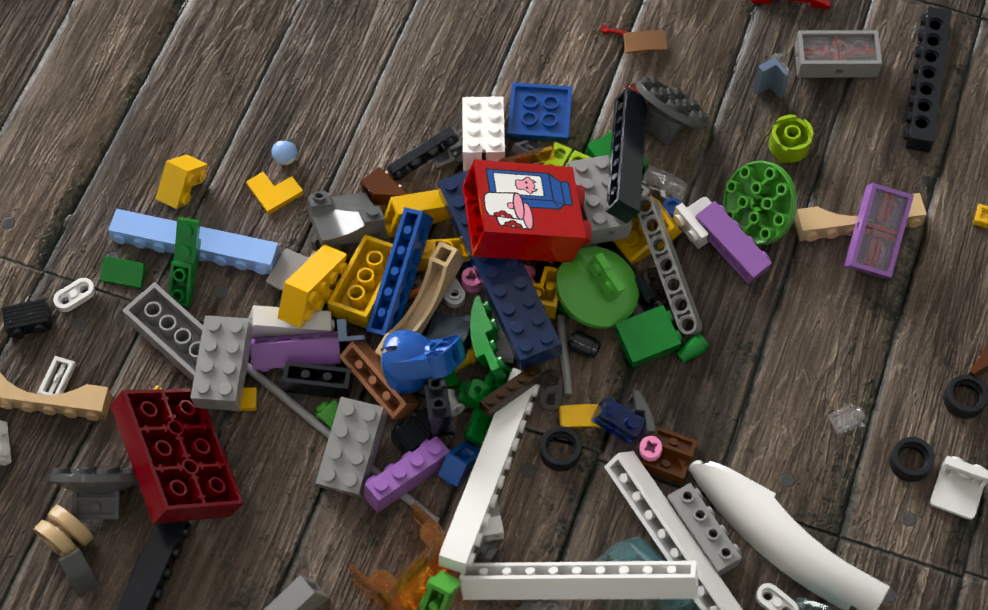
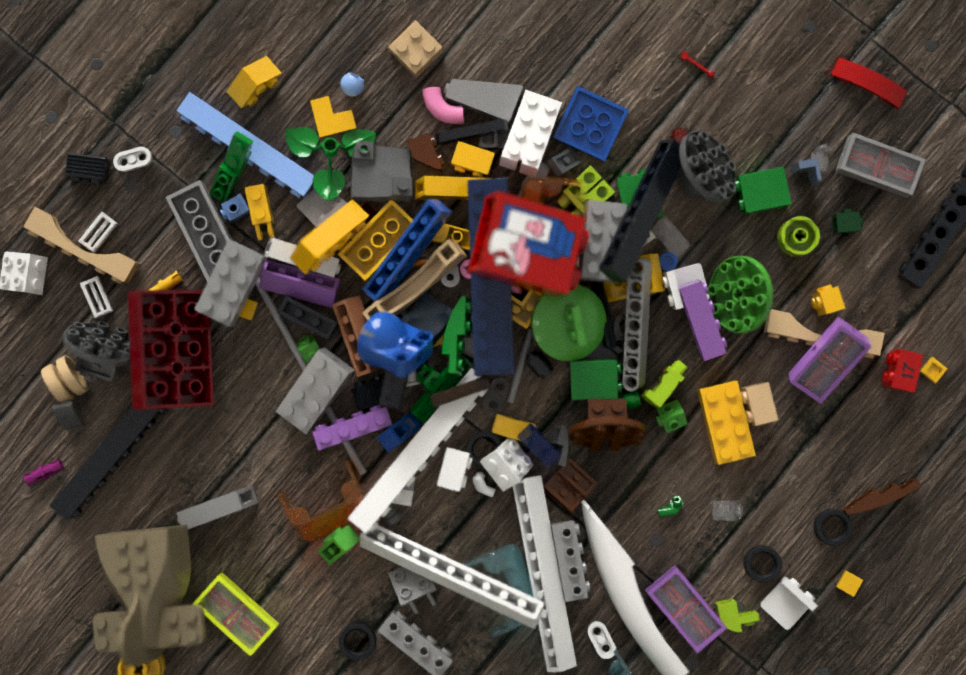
camera: 20 degrees right, 25 degrees up
(85, 456) = (105, 298): none -> white tile
(123, 272) = (179, 152): green slope -> none
(207, 307) = (241, 211): none -> medium blue brick
(227, 292) = (260, 209): none -> yellow hinge
(291, 244) = (303, 140): none -> green plant
(337, 102) = (415, 49): none -> tan brick
(343, 333) = (345, 290): sand blue panel -> none
(383, 145) = (440, 109): none -> bright pink cylinder
(421, 120) = (485, 98): none -> light grey slope
(429, 173) = (472, 159): none -> yellow brick
(537, 480) = (453, 469): none -> white brick
(572, 488) = (480, 485): none -> white arm
(590, 451) = (507, 464): none -> white bracket
(644, 41) = (714, 86): medium nougat slope -> none
(650, 453) = (554, 476): bright pink wheel -> none
(684, 372) = (607, 422): none -> reddish brown bracket
(724, 312) = (665, 384): none -> lime hips
(736, 113) = (762, 190): none -> green brick
(744, 345) = (671, 416): none -> bright green brick
(789, 438) = (672, 509): none -> green arm
(804, 332) = (726, 422): none -> yellow brick
(828, 299) = (758, 404): none -> tan brick
(831, 114) = (847, 222): none -> dark green brick
(849, 183) = (827, 300): none -> yellow brick
(854, 532) = (685, 609): none -> clear brick
(906, 527) = (728, 613): none -> lime brick
(955, 220) = (901, 370): none -> red brick

